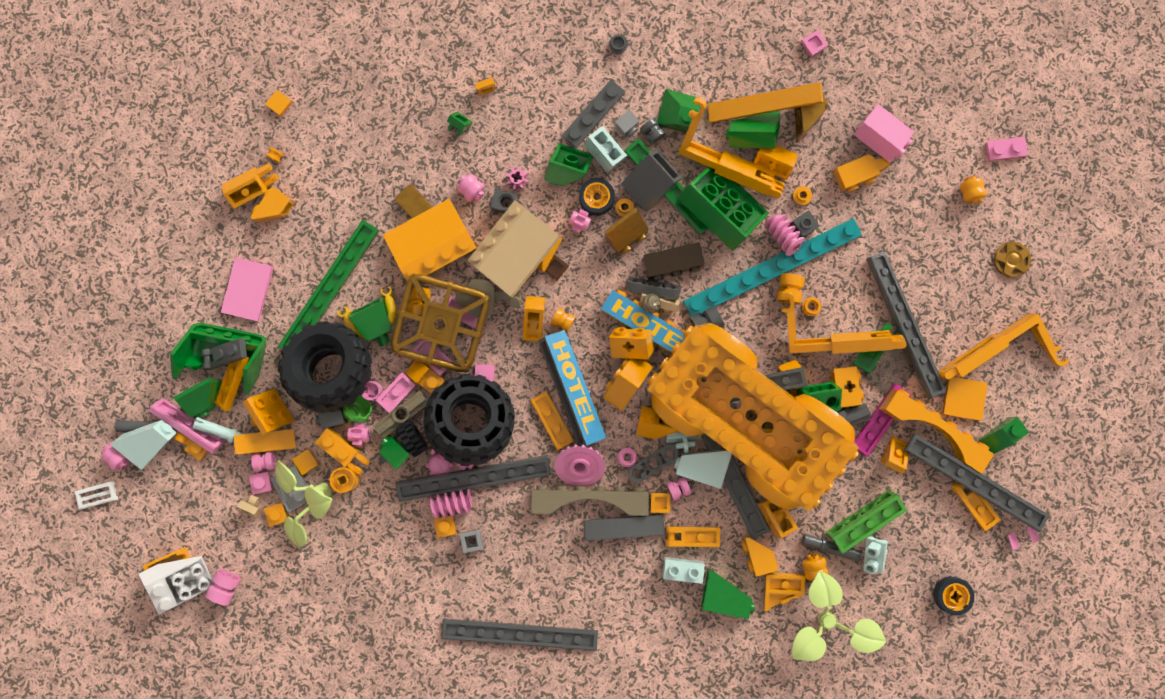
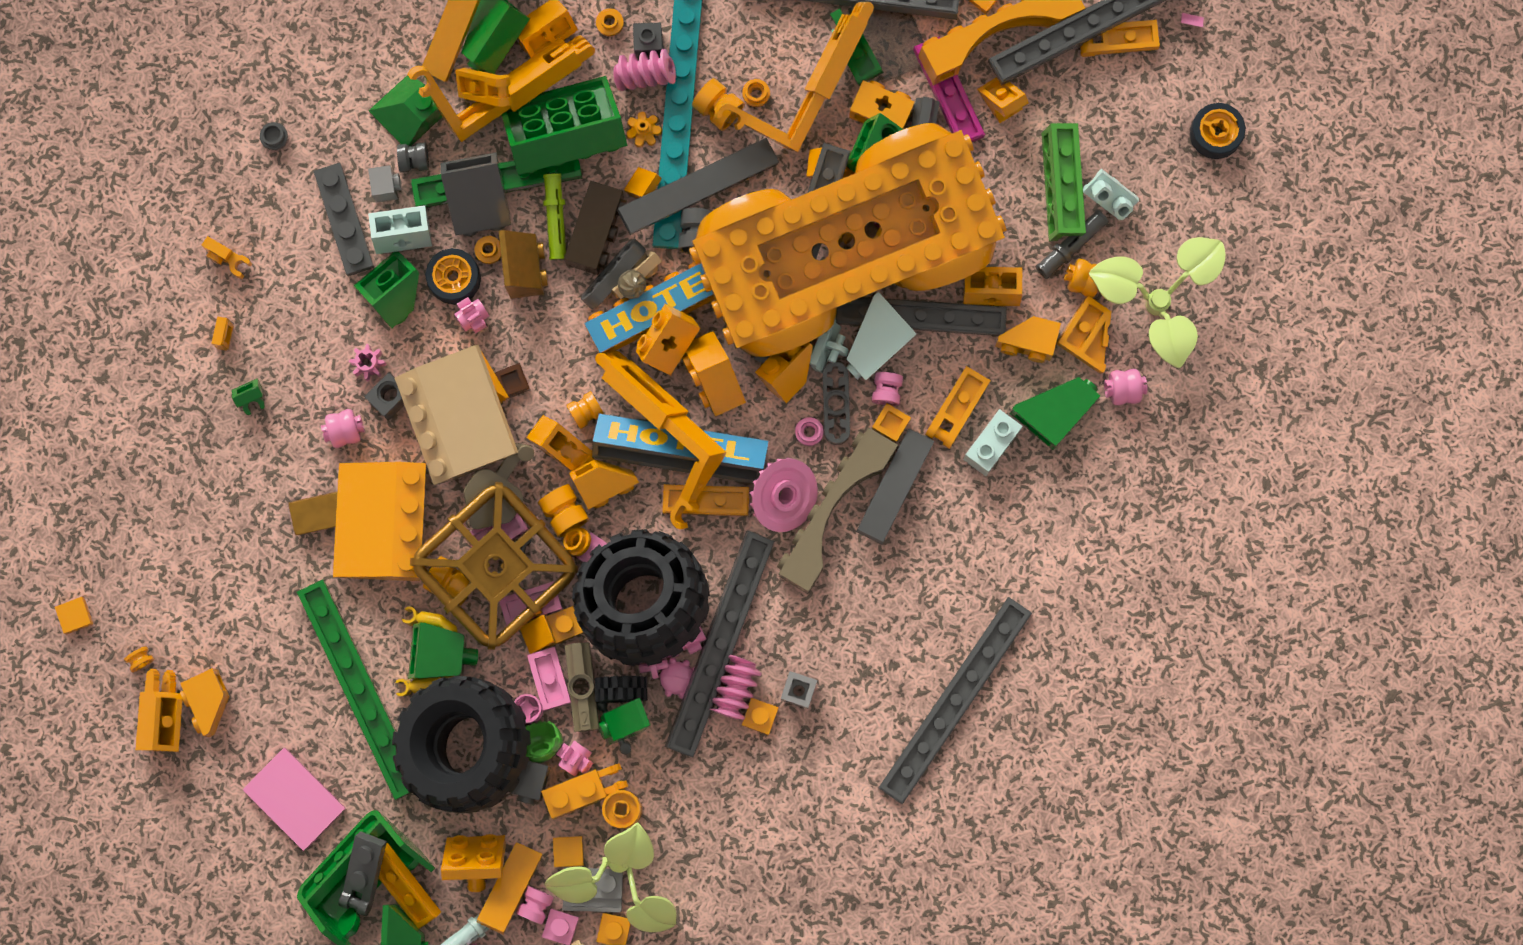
camera: 60 degrees left, 5 degrees down
(483, 357) = (577, 541): none -> light orange plate
(497, 342) = (563, 510): none -> light orange wheel
(526, 354) = (601, 481): none -> light orange slope
(531, 57) = (220, 253): none -> light orange plate
(585, 368) = (666, 414): none -> light orange hinge
(666, 234) = (555, 216): none -> lime pin
(716, 273) = (642, 183): none -> light orange tile
(717, 146) = (483, 87): none -> light orange plate
(734, 306) = (698, 186): none -> dark grey tile
(750, 257) = (643, 134): none -> light orange plant
(763, 629) = (1125, 387): none -> bright pink piece

